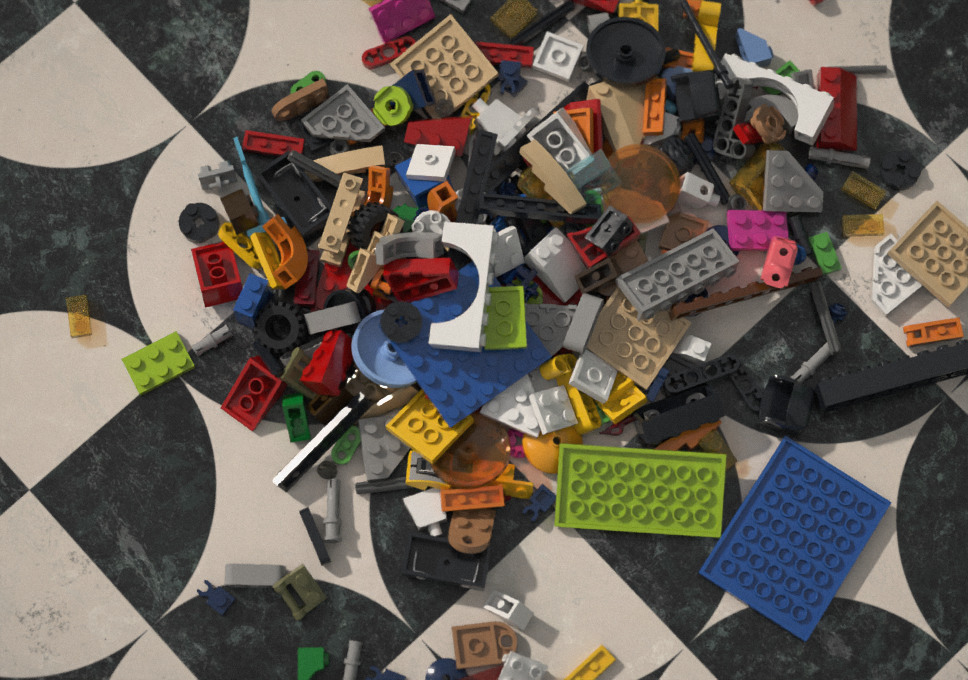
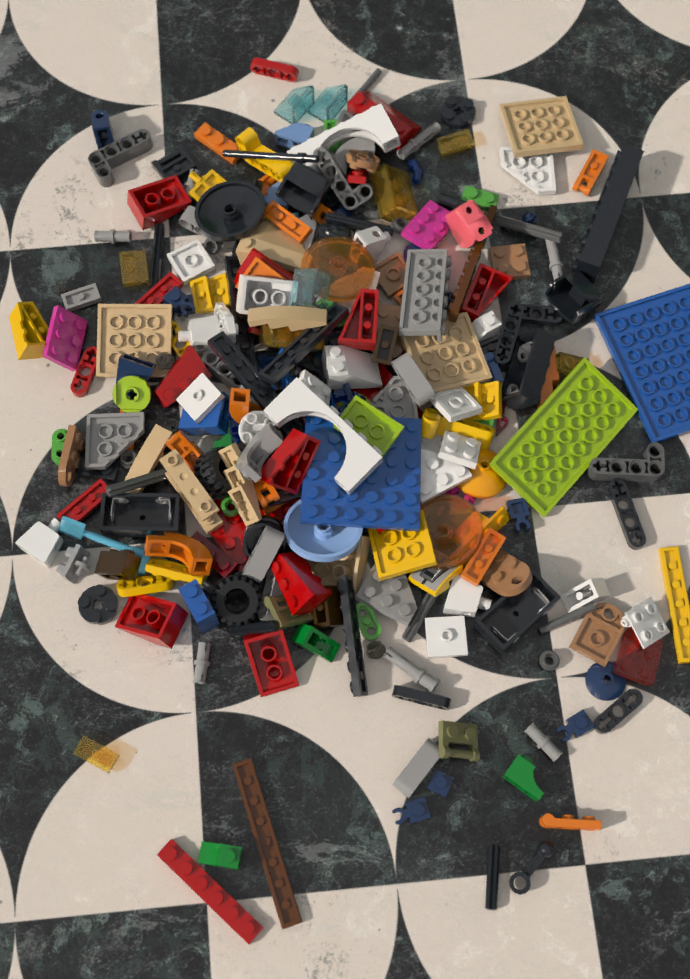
camera: 50 degrees left, 5 degrees down
(39, 485) = (210, 891): none -> red plate
(71, 473) = (220, 855): none -> green arch
(108, 500) = (267, 844): none -> reddish brown tile
(158, 363) = (185, 719): lime plate -> none
(215, 137) = (42, 541): none -> white torso
(256, 603) = (440, 783): none -> dark blue plate
(383, 519) = (446, 636): none -> white plate
(407, 332) = (312, 512): black plate -> none
(427, 612) = (552, 655): none -> dark grey plate
(475, 608) = (567, 617): none -> dark grey bar
(540, 94) = (209, 291): none -> yellow slope
(610, 230) = (361, 307): black bracket -> none
(610, 593) = (623, 514): none -> black beam
(656, 563) = (625, 465): none -> dark grey beam
(726, 322) = (484, 290): none -> red wedge
(780, 325) = (510, 260): none -> medium nougat plate
(786, 24) = (296, 104): none -> clear light blue slope
(789, 186) = (415, 181): light grey plate -> none
(812, 51) = (329, 103): none -> clear light blue slope
(863, 225) = (479, 160): clear yellow plate -> none

